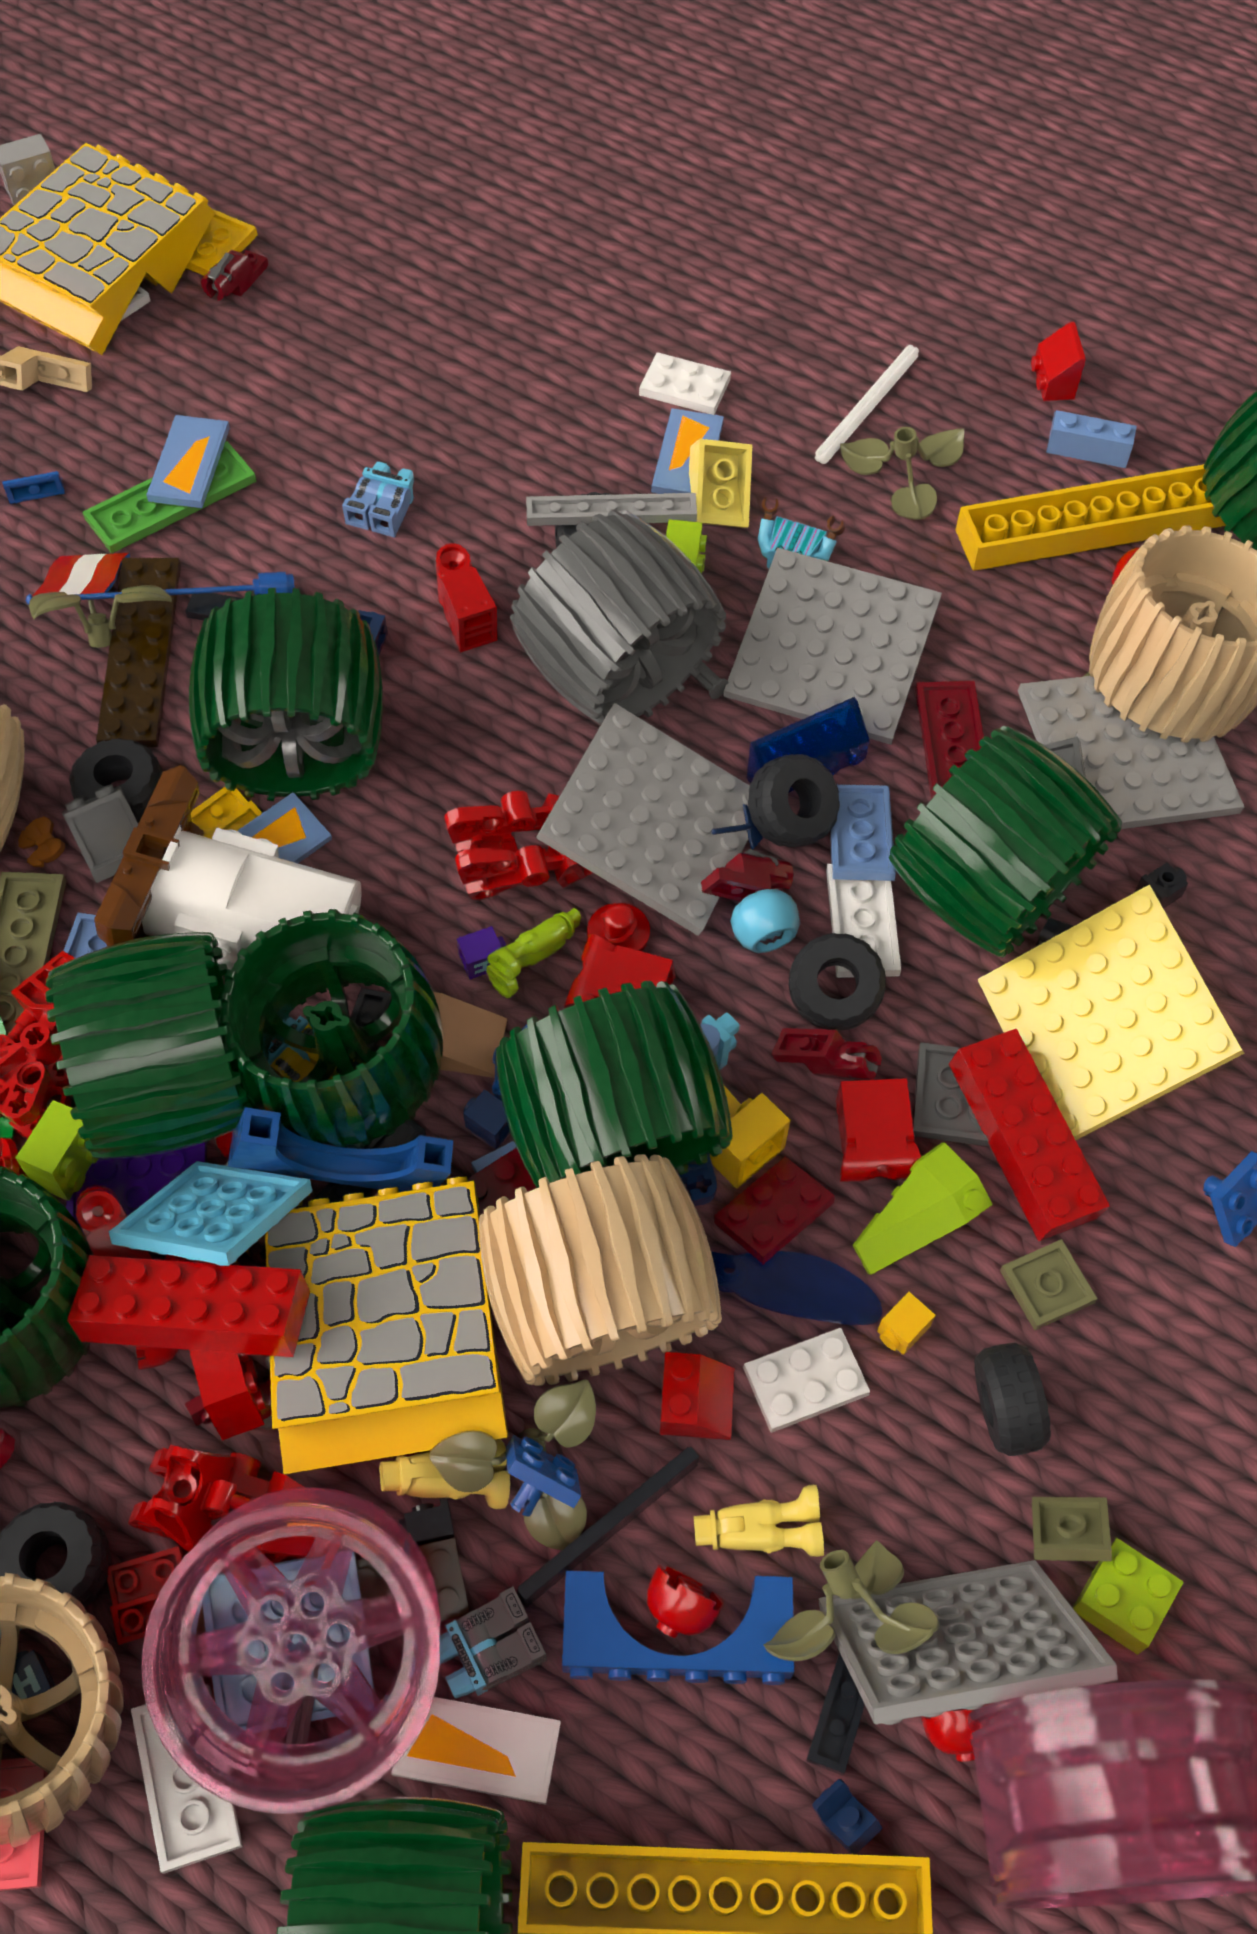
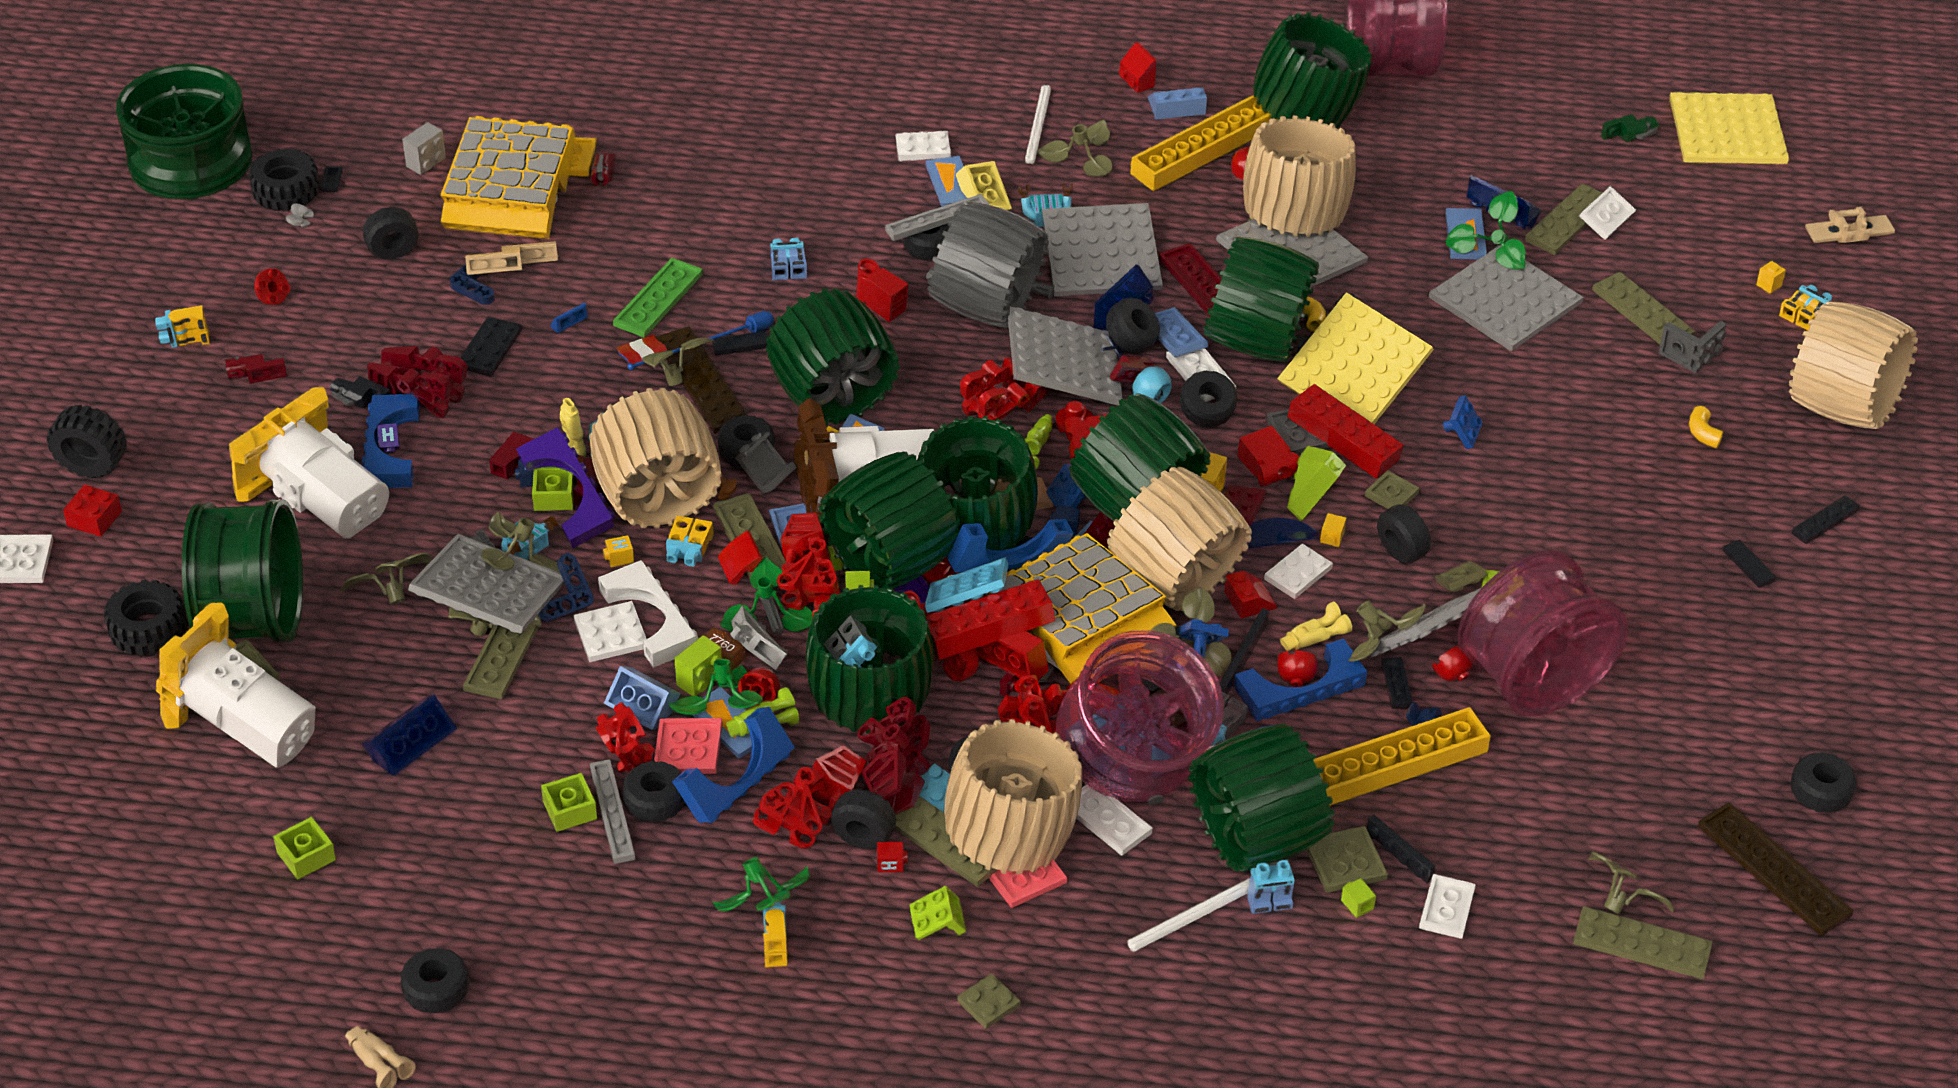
camera: 25 degrees left, 15 degrees down
(188, 461) = (659, 273): medium blue tile -> none
(827, 1053) = (1223, 432): dark red plate -> none
(1102, 884) = (1315, 313): none -> yellow cylinder

